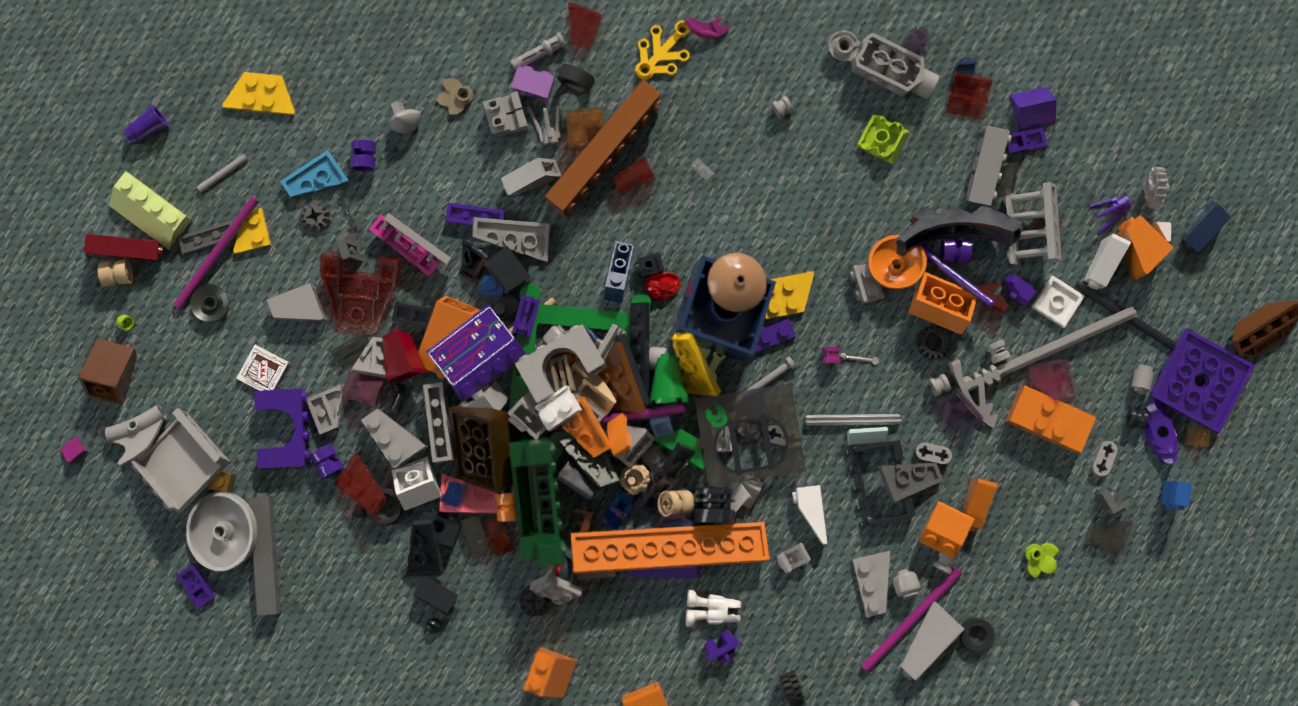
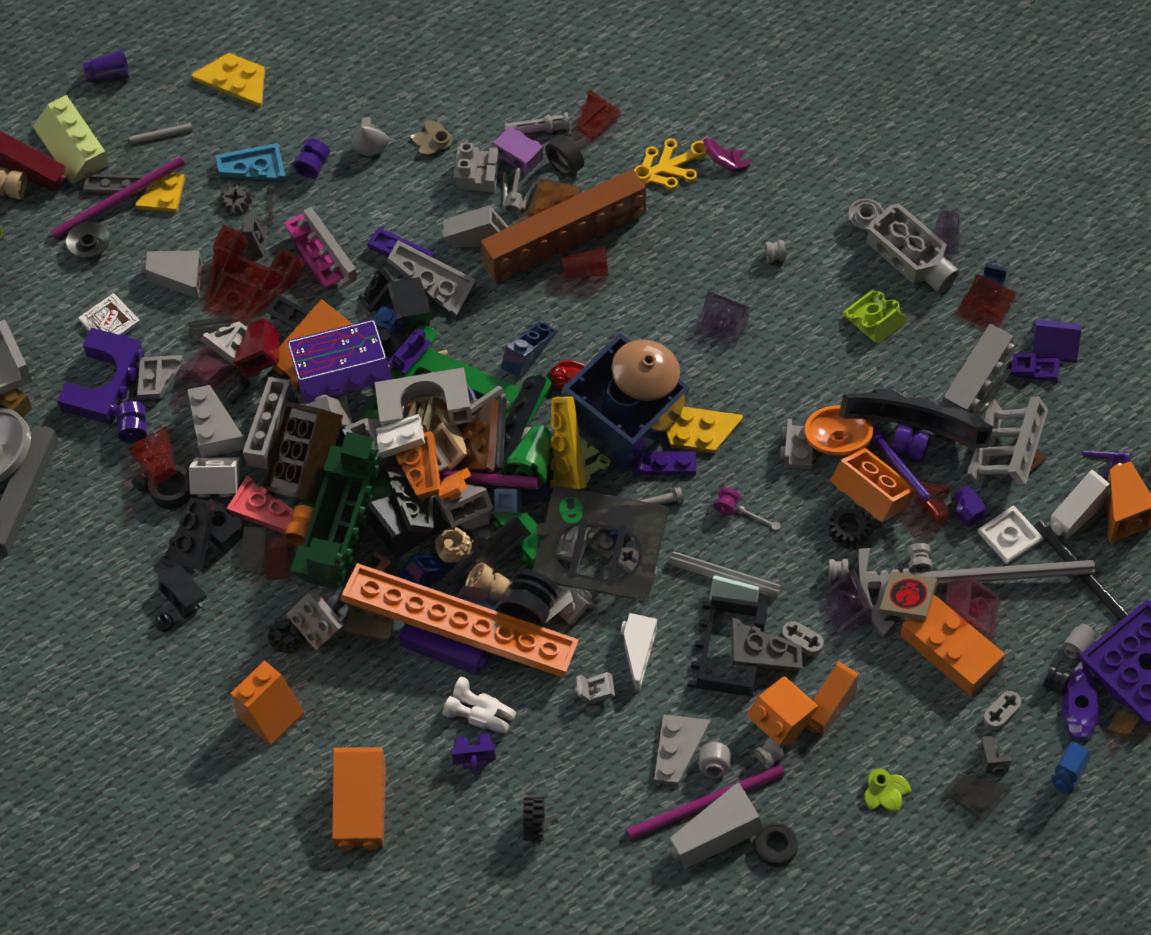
camera: 25 degrees right, 25 degrees down
(454, 495) = (251, 496): clear blue panel -> none
(646, 272) = (564, 350): black brick -> none
(702, 169) = (660, 278): clear pin -> none
(765, 189) = (723, 319): none -> clear purple slope
(1006, 394) = (908, 596): none -> tile

